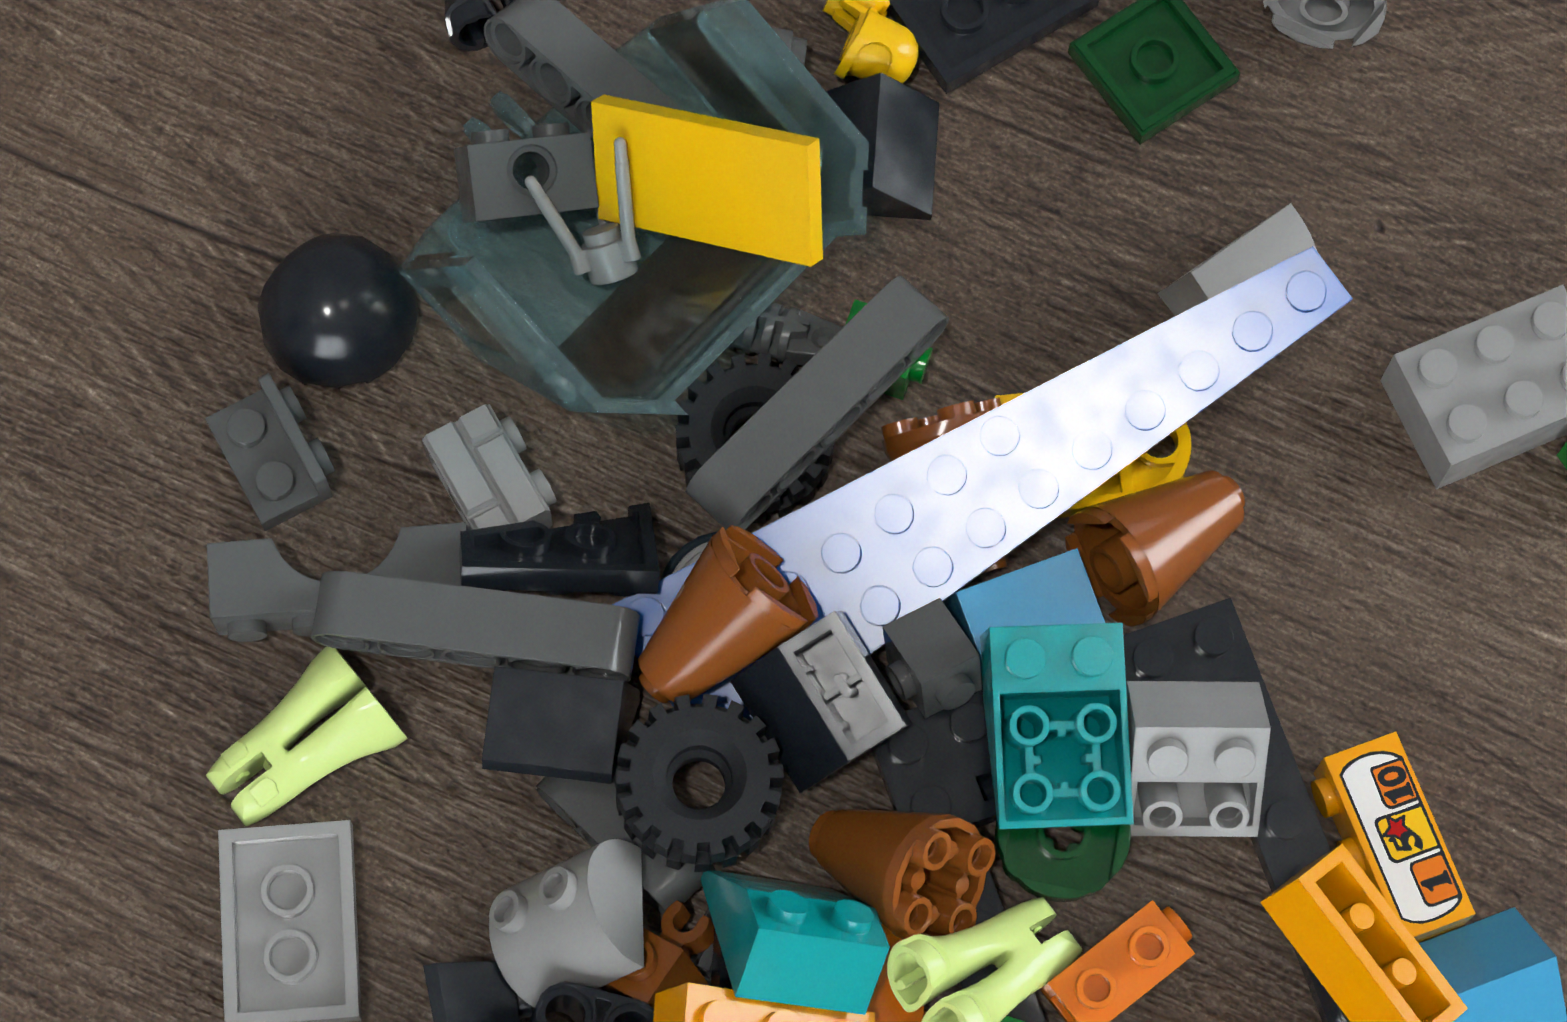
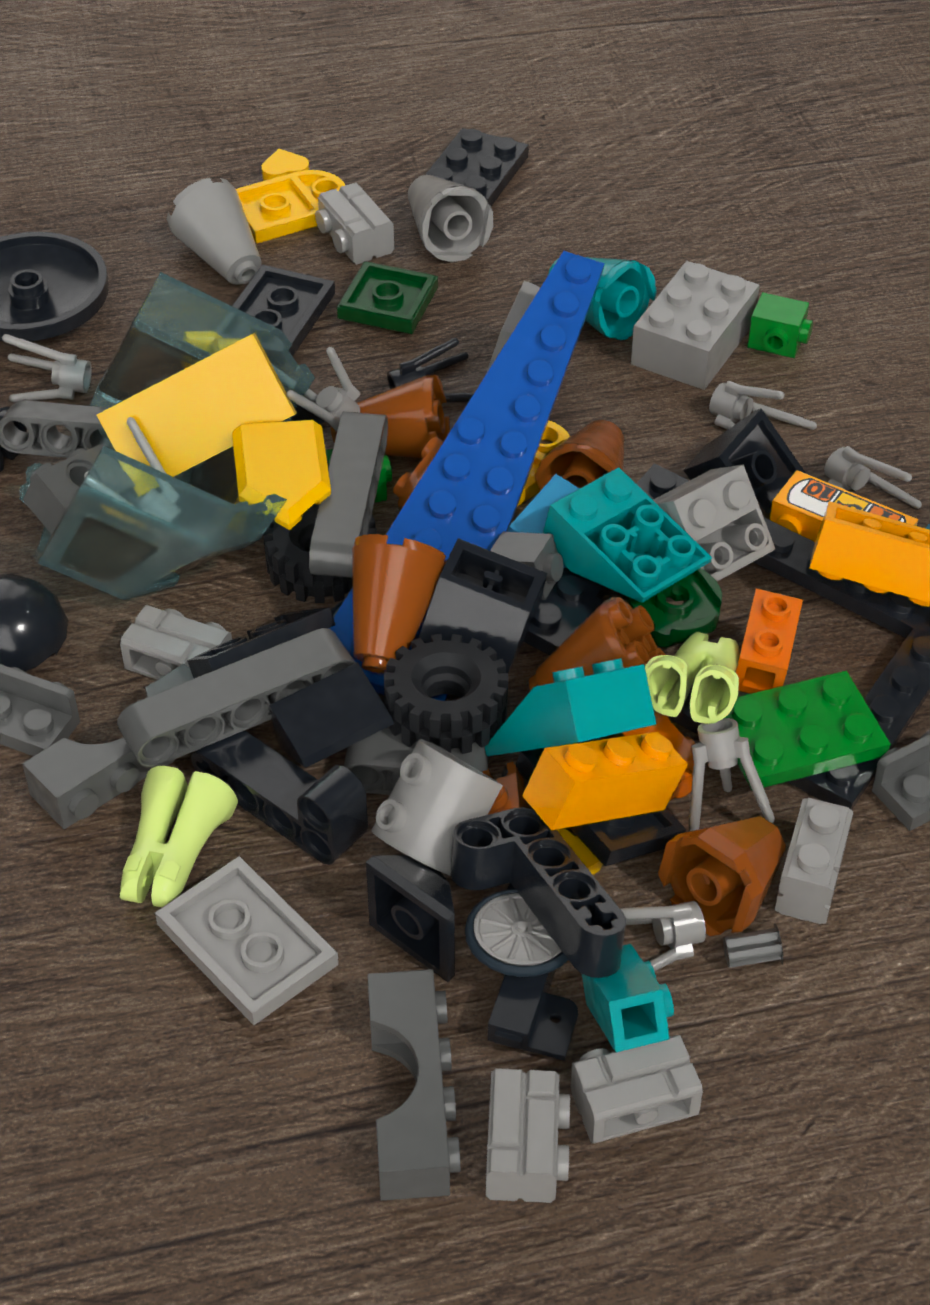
camera: 35 degrees left, 25 degrees down
(457, 789) = (312, 813): none -> black beam
(743, 336) = (282, 461): none -> yellow tile
(908, 246) = (331, 400): none -> light grey plant
(997, 311) = (412, 413): none -> dark orange cone
(1065, 234) = (412, 369): none -> black plant
(1352, 675) = (757, 447): none -> black slope
(1420, 252) = (620, 297): none -> teal cone
(1438, 555) = (732, 403): none -> light grey plant
(1488, 766) = (851, 471): none -> light grey plant

